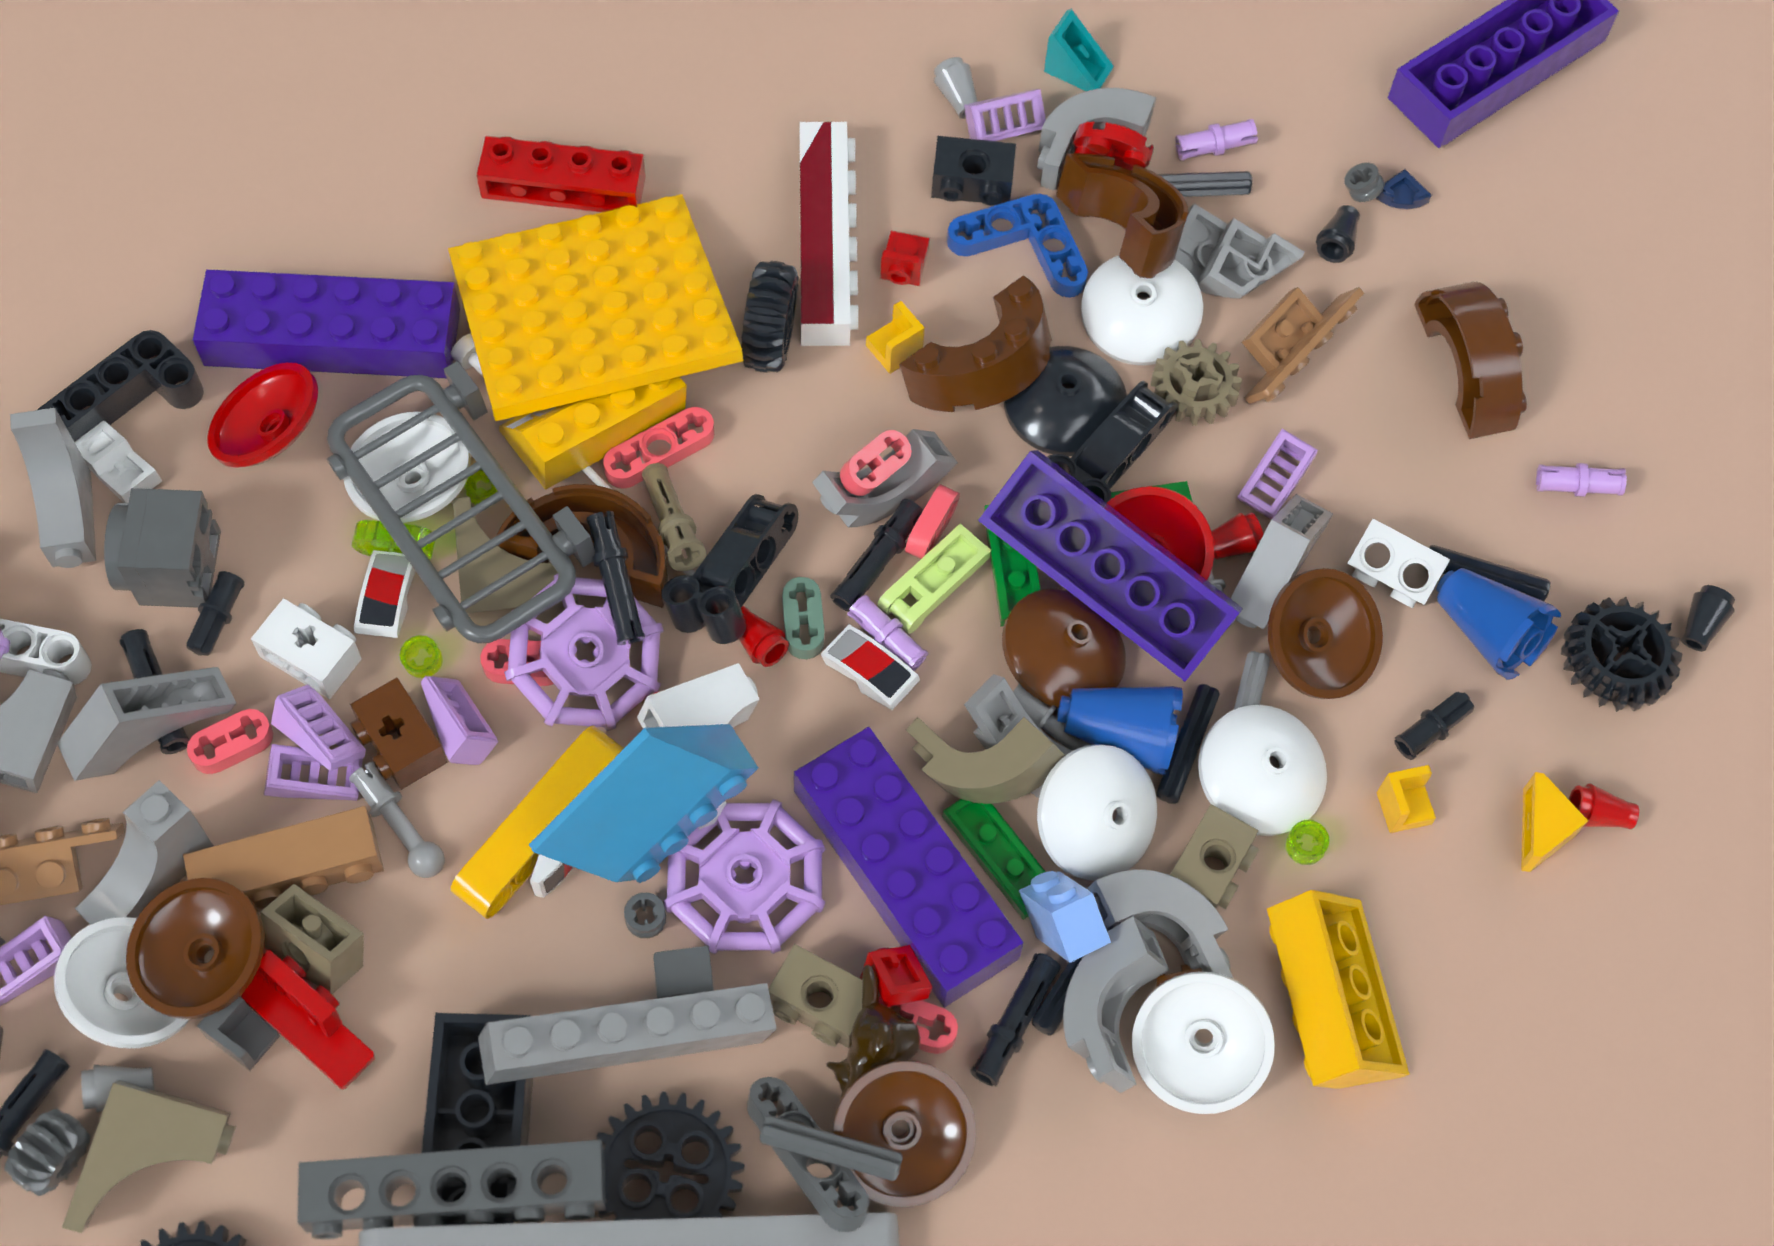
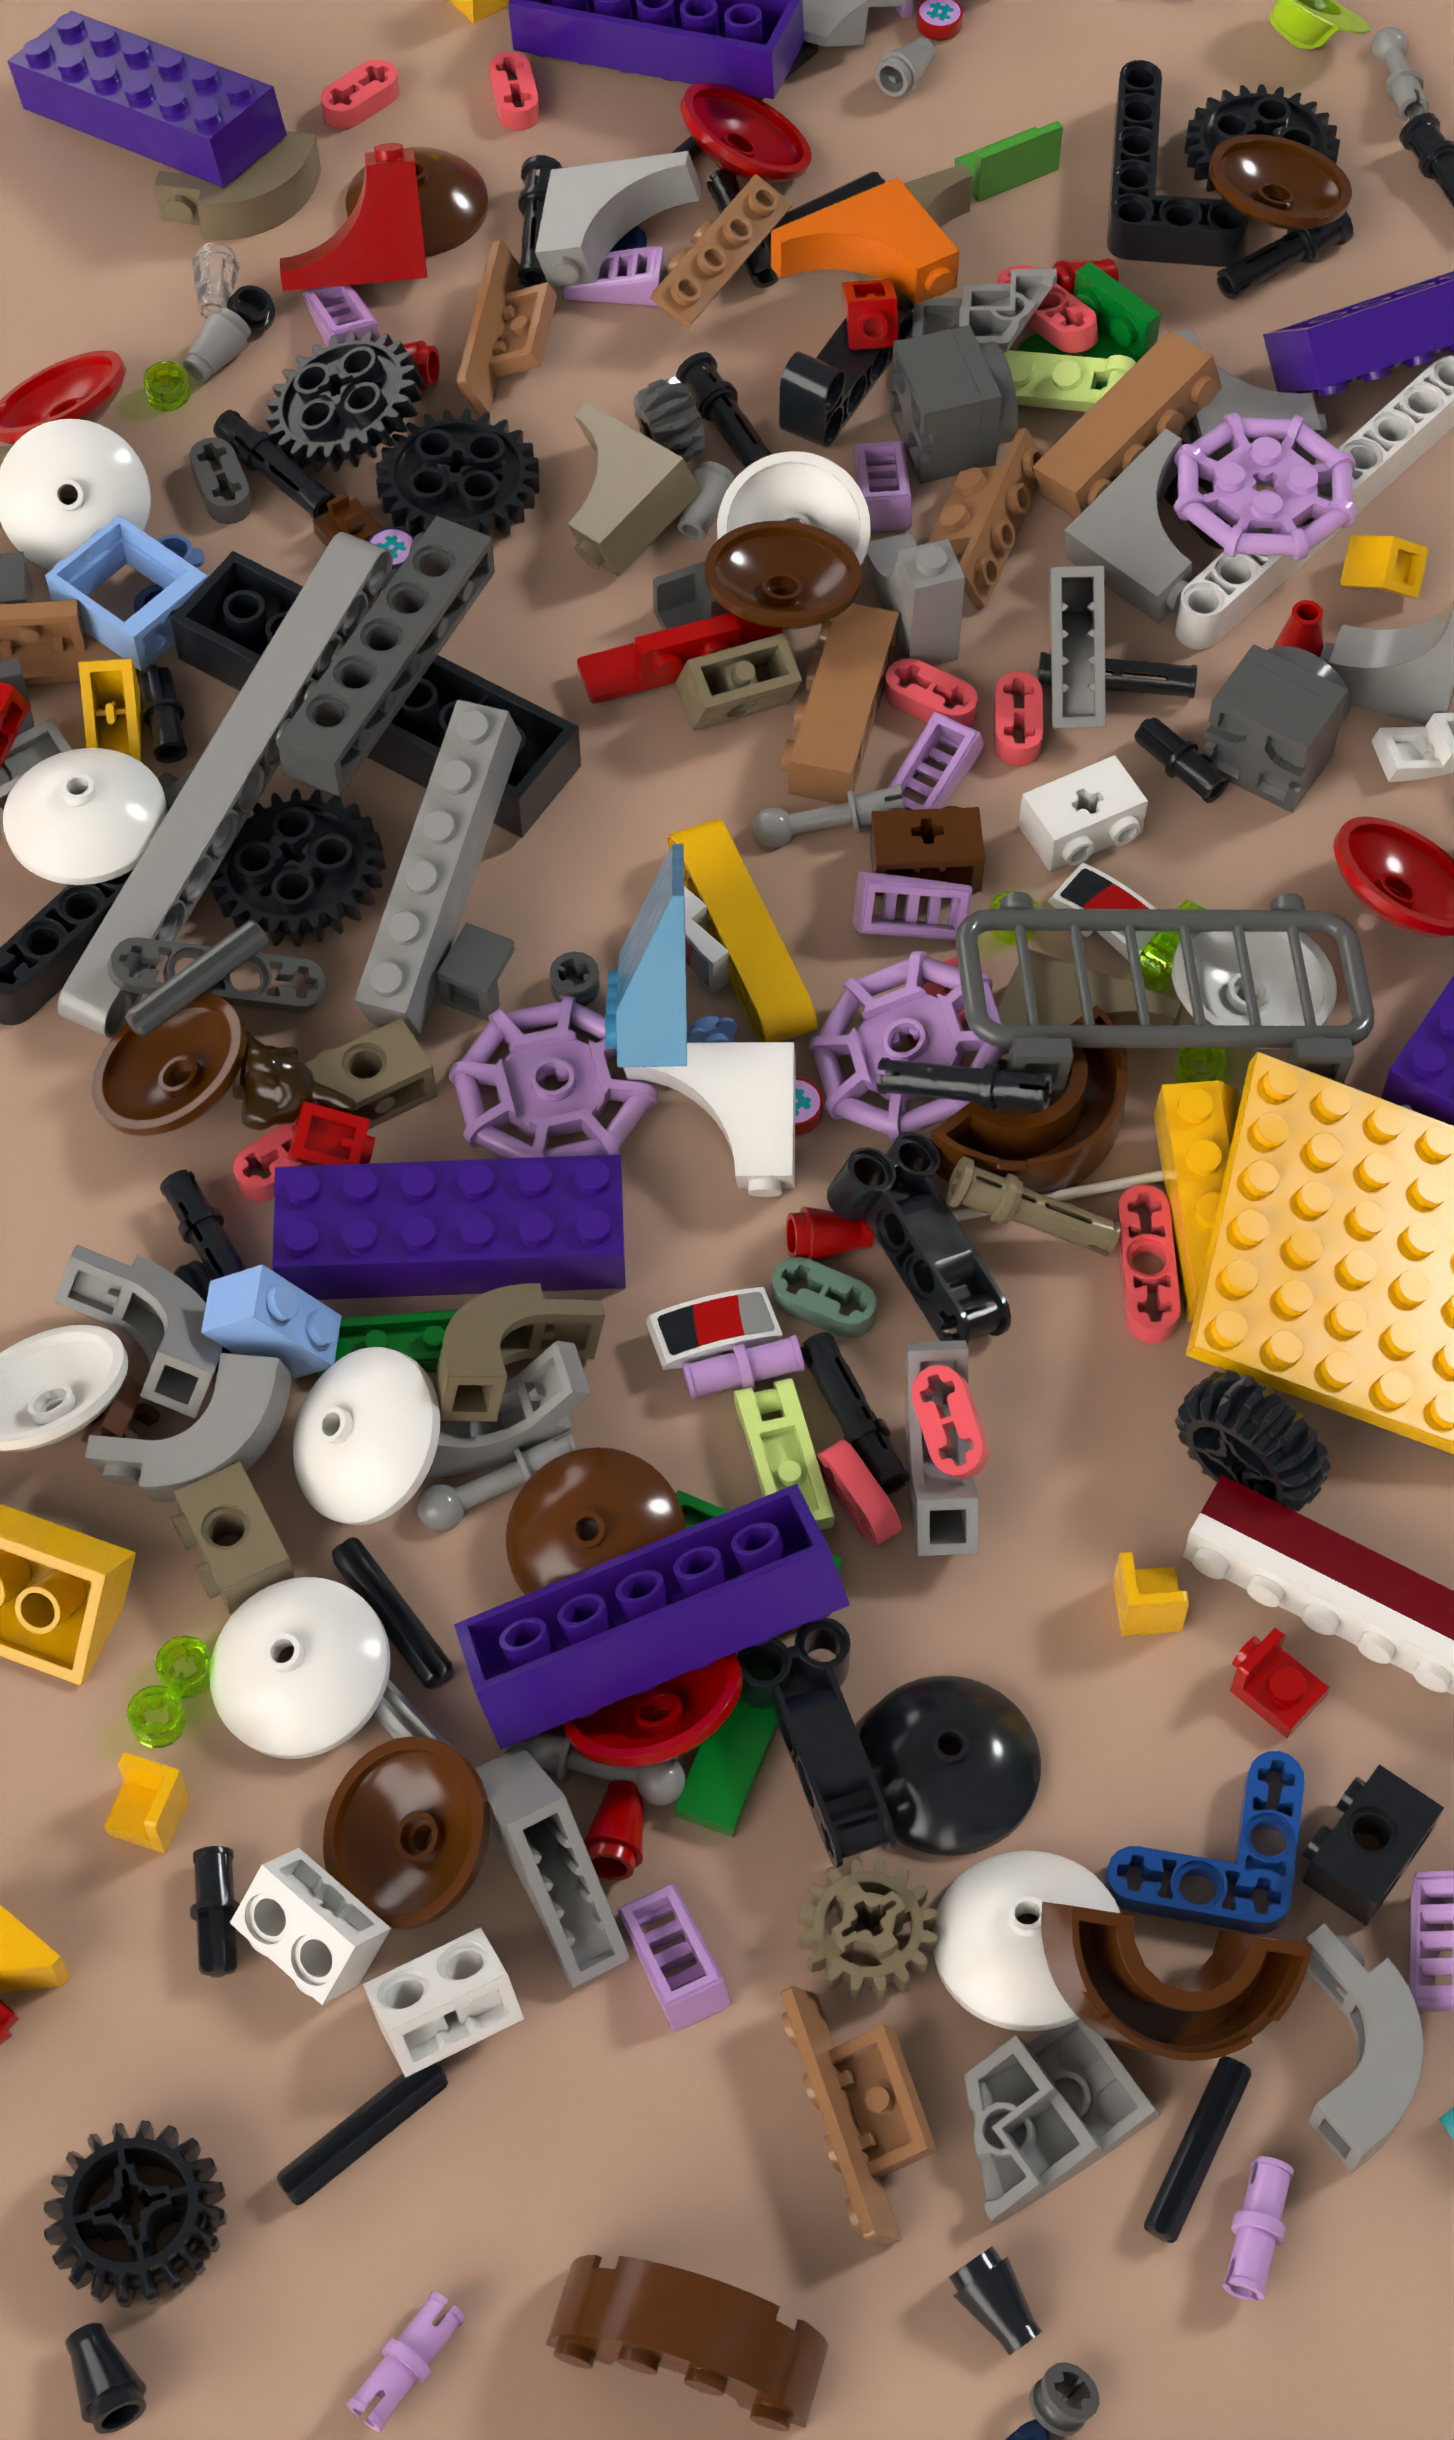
camera: 125 degrees right, 5 degrees down
(59, 580) = (1303, 628): none -> red cone
(226, 806) = (931, 694): none -> coral beam
(305, 716) = (1007, 776): lavender slope -> none
(991, 367) = (1031, 1695): reddish brown brick -> none
(1115, 142) = (1300, 2035): red plate -> none
(1126, 718) = (448, 1530): blue cone -> none
(1357, 828) = (157, 1734): none -> clear neon green bush
(1412, 655) = (309, 1926): none -> white brick
(1498, 619) = (286, 2068): blue cone -> none

